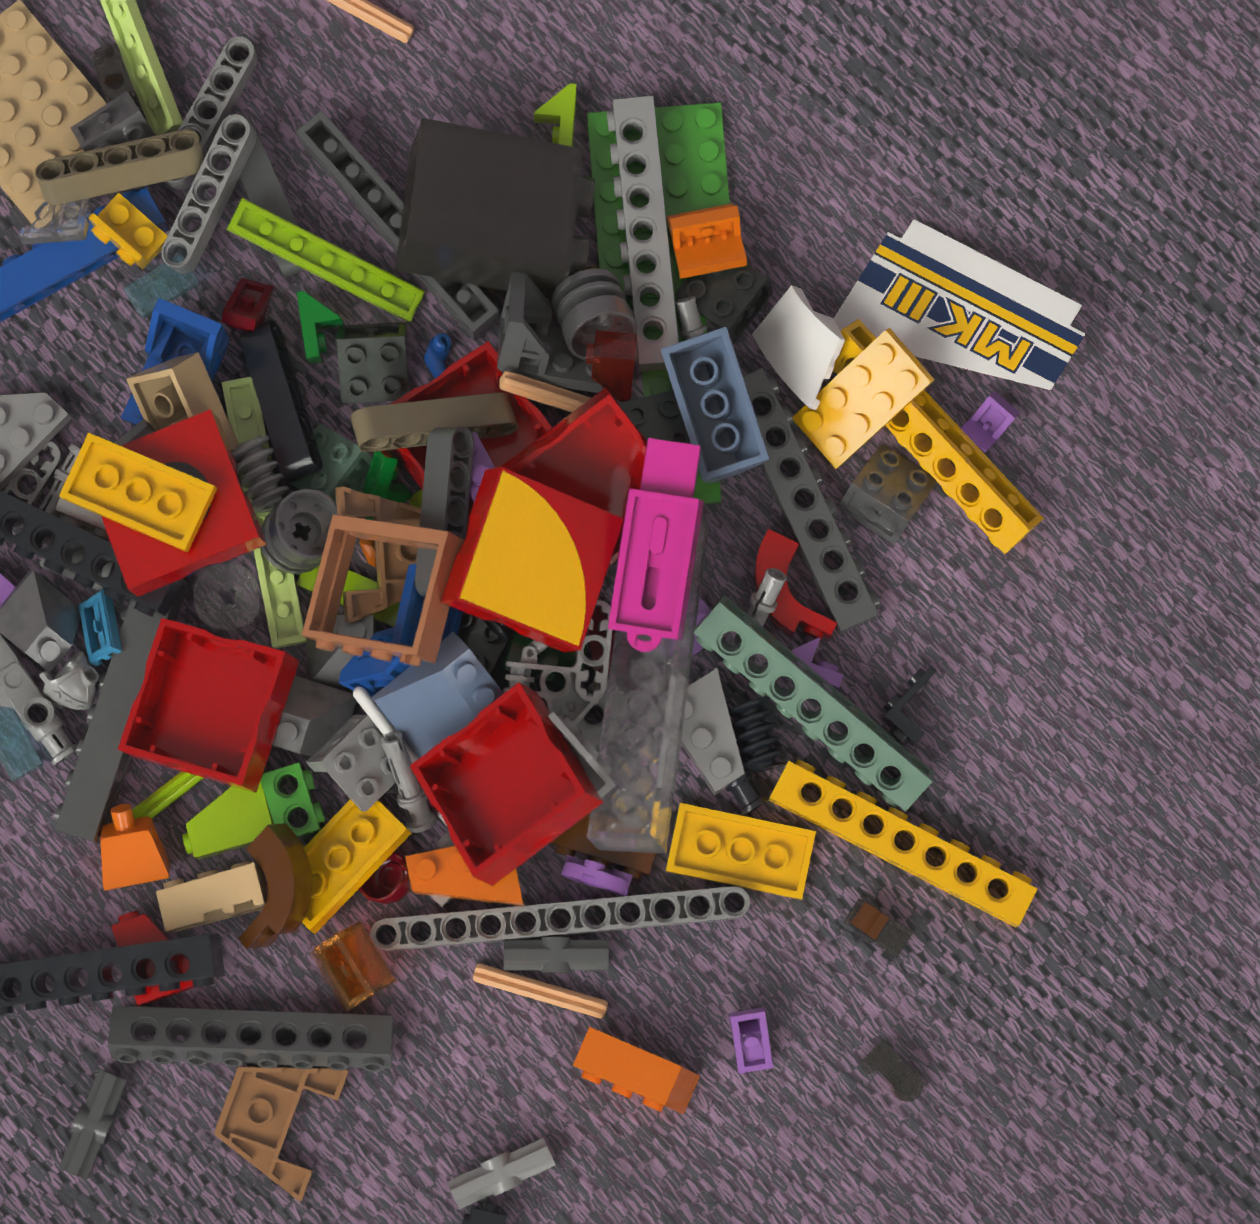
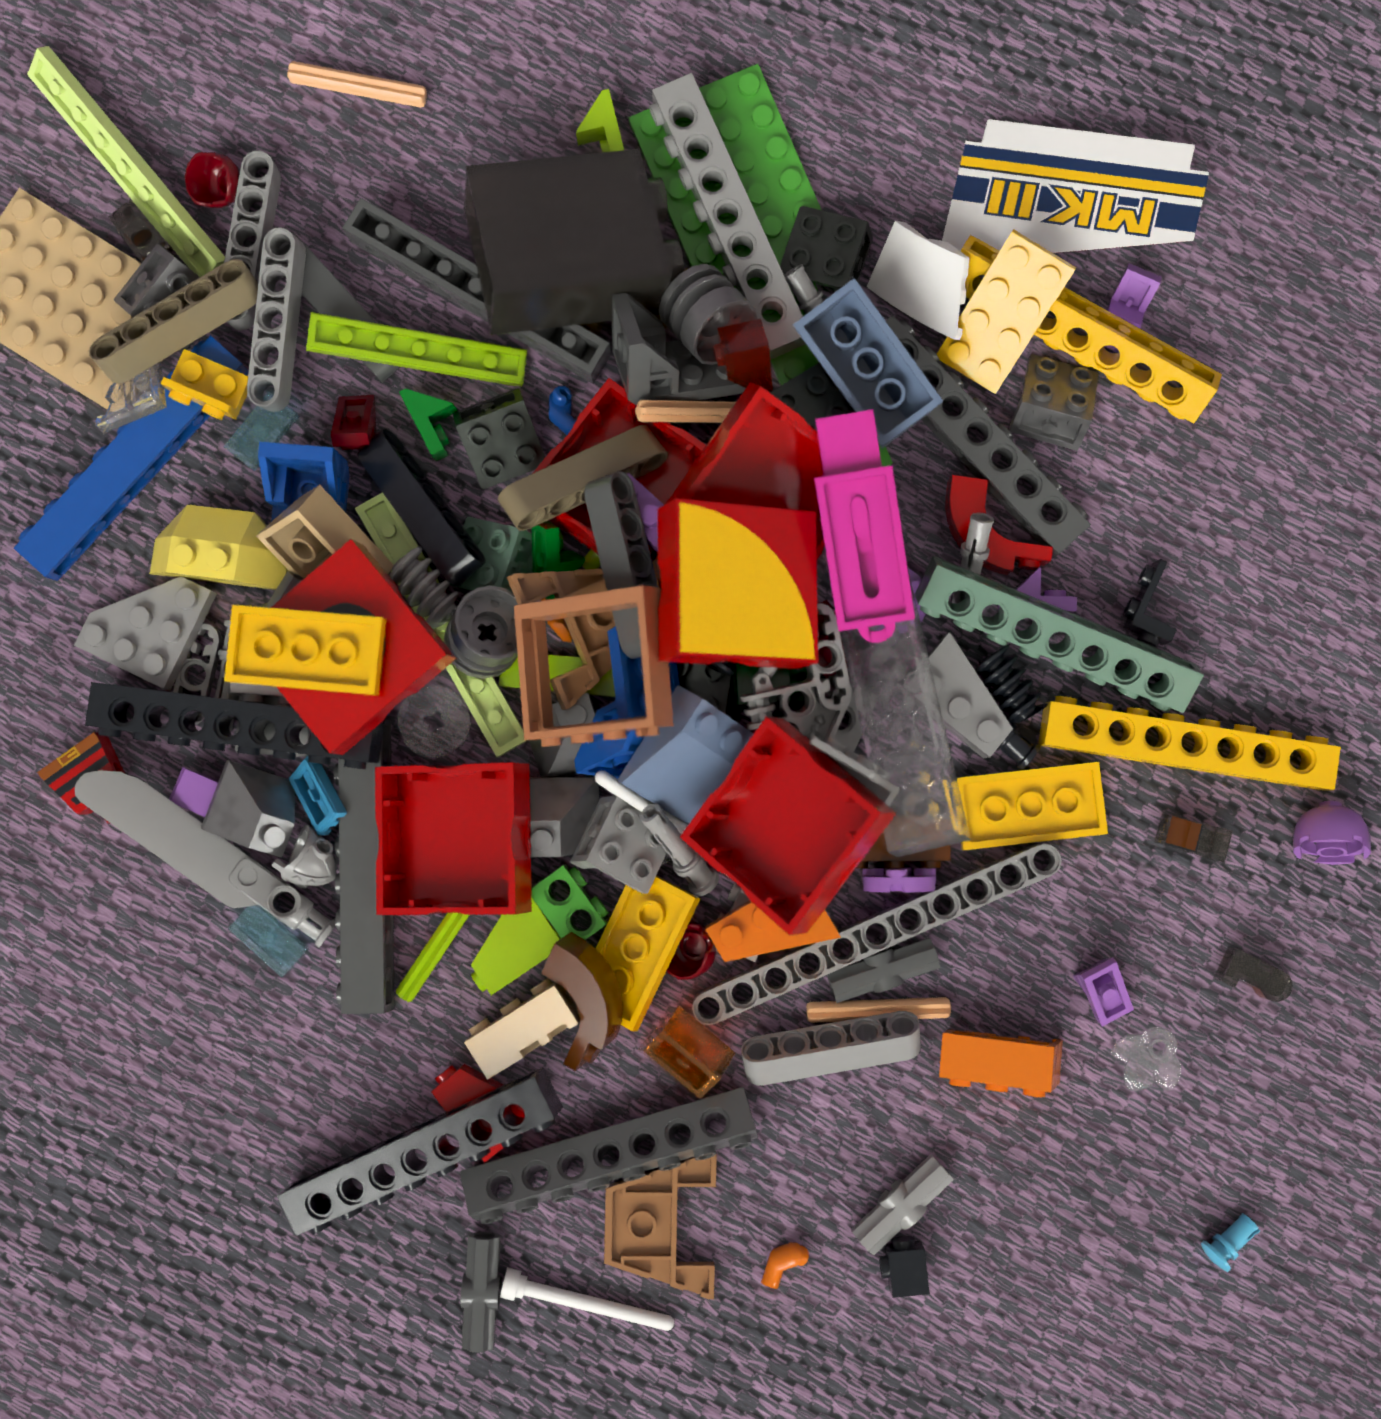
camera: 15 degrees left, 5 degrees up
(86, 378) = (216, 548): none -> light yellow wedge
(128, 1130) = (517, 1285): none -> white piece
(131, 850) = (426, 1009): orange torso -> none
(194, 49) = (212, 179): none -> dark red hair
(376, 1187) = (781, 1259): none -> orange arm
(485, 1008) = (831, 1048): none -> light grey beam
(707, 240) = (795, 203): orange bracket -> none
(768, 1122) = (1146, 1065): none -> clear plate
(1005, 965) = (1337, 833): none -> medium lavender cylinder

